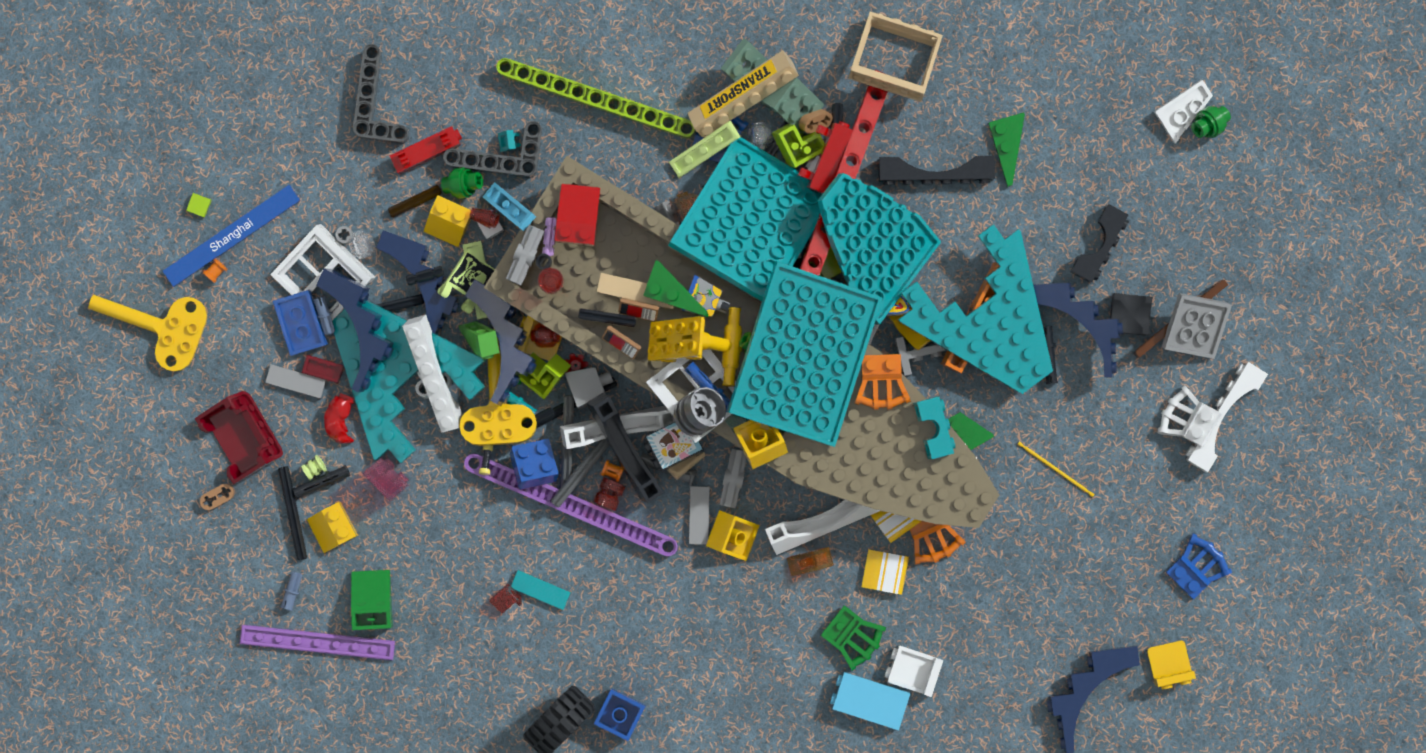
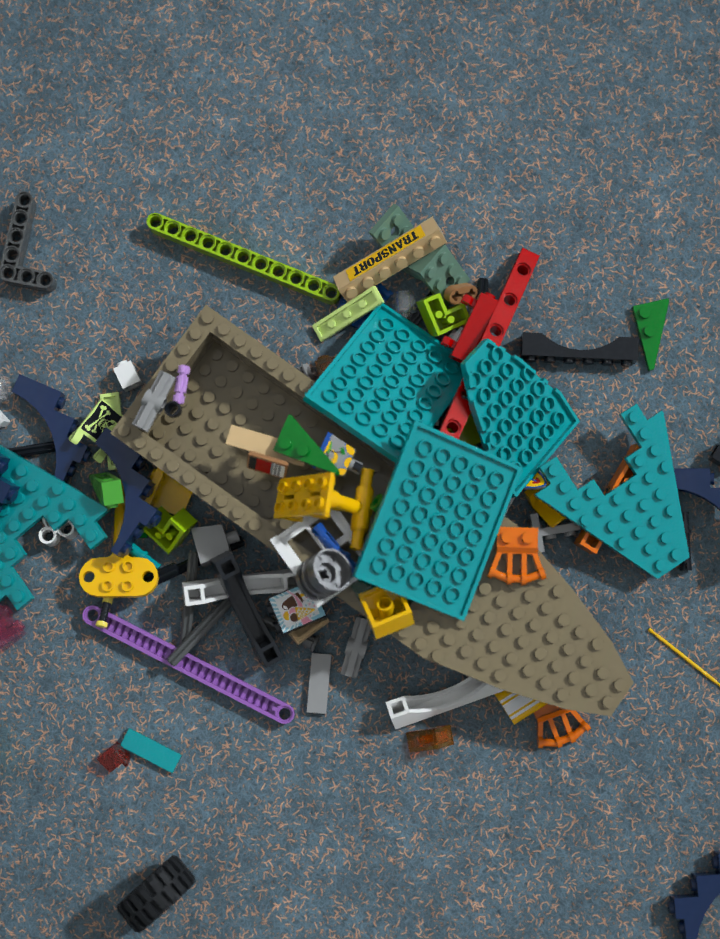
camera: 10 degrees right, 5 degrees down
(414, 201) = (56, 349): dark brown axle -> none
(421, 344) = (44, 485): white arch -> none
(424, 275) = (56, 421): black axle -> none
(426, 149) = (70, 298): red brick -> none
(447, 221) = (87, 369): yellow slope -> none
(462, 183) = (103, 332): green piece -> none
(486, 217) = (124, 367): clear red cone -> none
(501, 159) = (145, 313): dark grey beam -> none
(507, 141) = (151, 294): teal tile -> none
(509, 206) = (146, 356): medium azure bracket -> none
(533, 464) = (152, 619): blue brick -> none
(544, 336) = (173, 490): clear red head -> none
(551, 281) = (178, 429): clear red wheel -> none
(576, 360) = (207, 517): red plant -> none
(577, 215) = (211, 364): red slope -> none
(606, 317) = (234, 471): black axle -> none
(606, 500) = (225, 662): clear red wheel -> none
(612, 470) = (233, 631): orange bush -> none
(619, 714) = (222, 888): blue brick -> none
(621, 342) = (247, 497): slope -> none
(732, 535) = (351, 706): yellow slope -> none
(841, 630) = (460, 810): green plate -> none
(870, 700) = (484, 889): medium azure brick -> none
(885, 572) = (506, 754): slope -> none
(886, 81) = (537, 258): tan window -> none
(913, 670) = (531, 860): white panel -> none
(940, 443) = (576, 623): teal arch -> none
(969, 431) = (602, 613): green wing -> none

